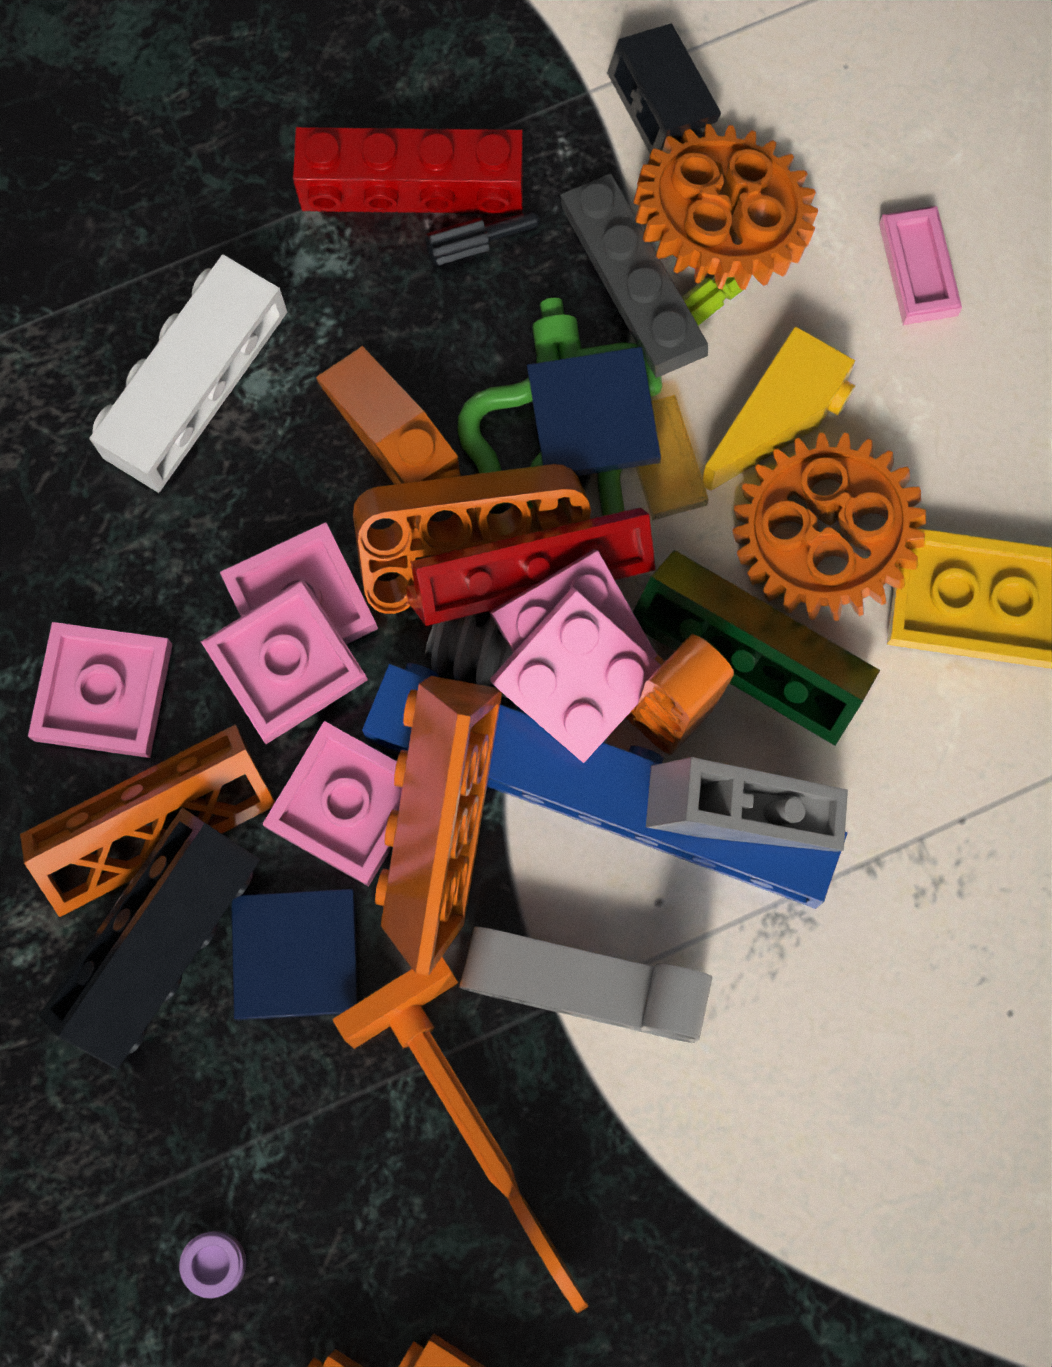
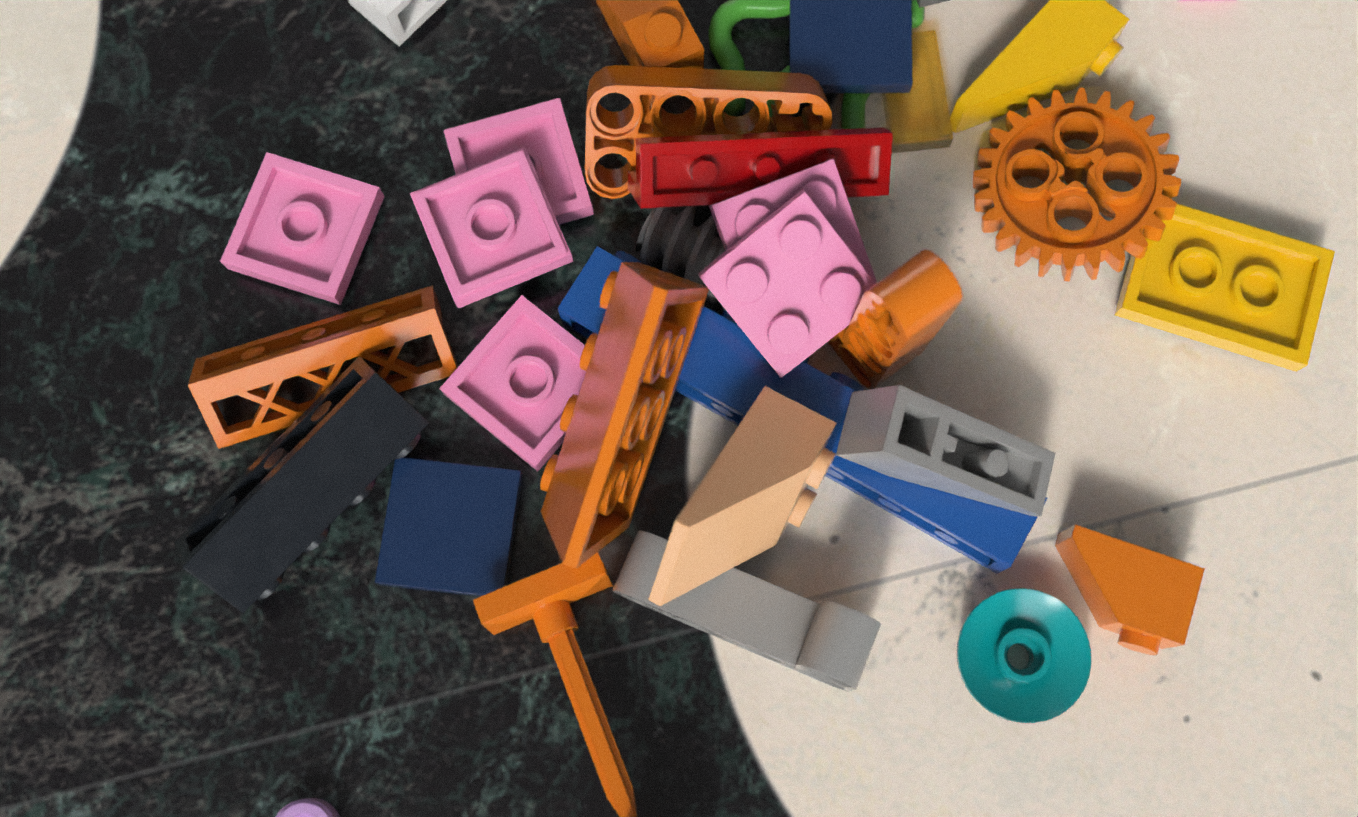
camera: 10 degrees right, 0 degrees up
(572, 877) = (747, 494): none -> light nougat slope
(768, 651) = (1001, 308): dark green brick -> none
(880, 974) = (1056, 652): none -> teal dish
(939, 902) = (1132, 588): none -> orange slope

